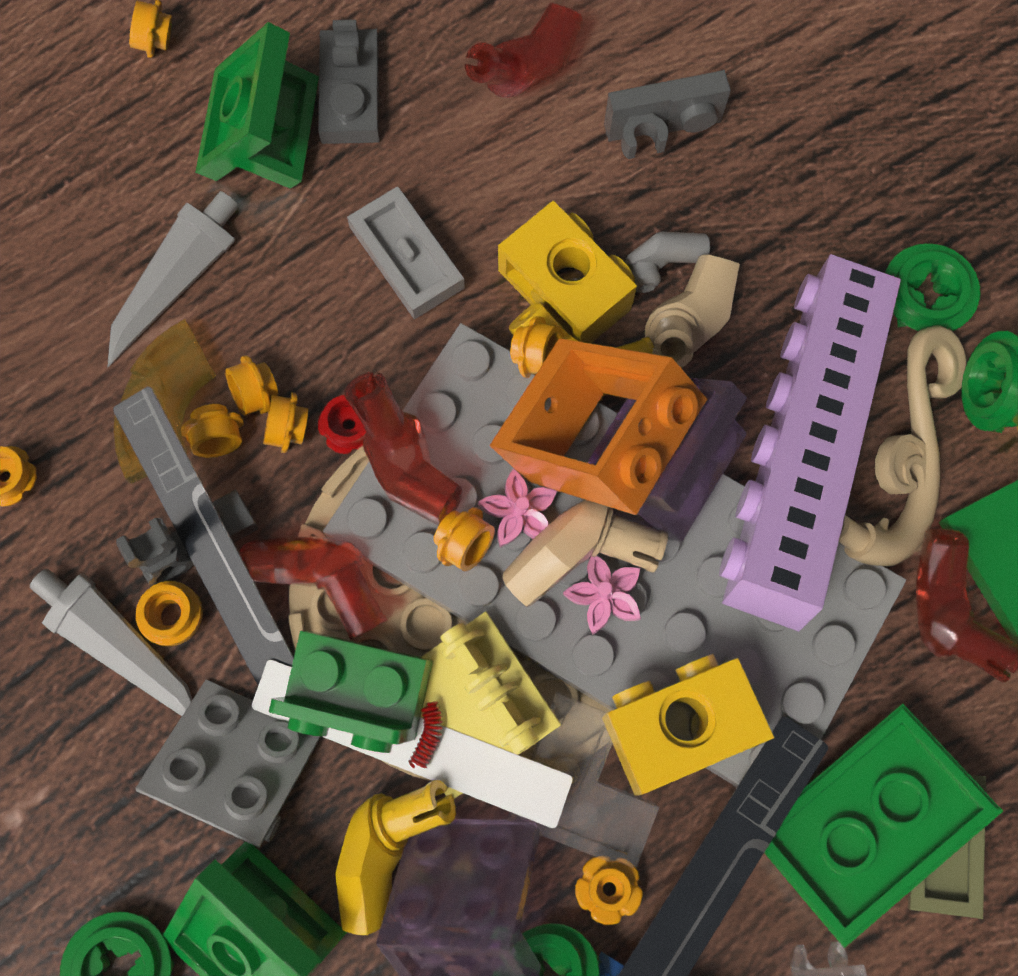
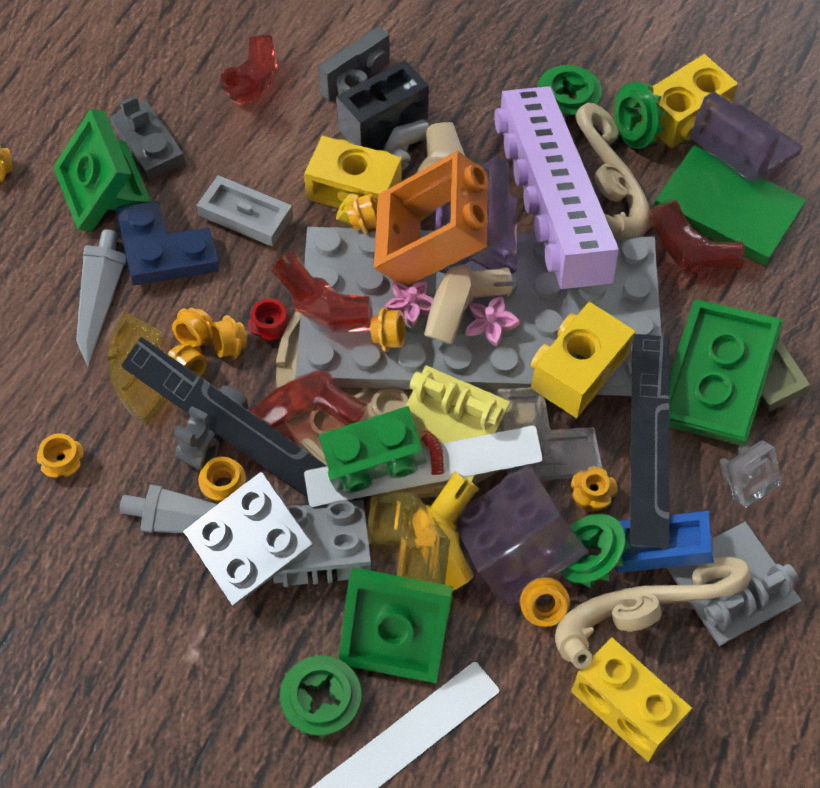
camera: 30 degrees left, 15 degrees down
(137, 725) = (248, 538): none -> hinge
(267, 259) = (162, 256): none -> dark blue plate
(333, 867) = (407, 521): none -> clear yellow tile
(660, 192) = (381, 104): none -> black brick

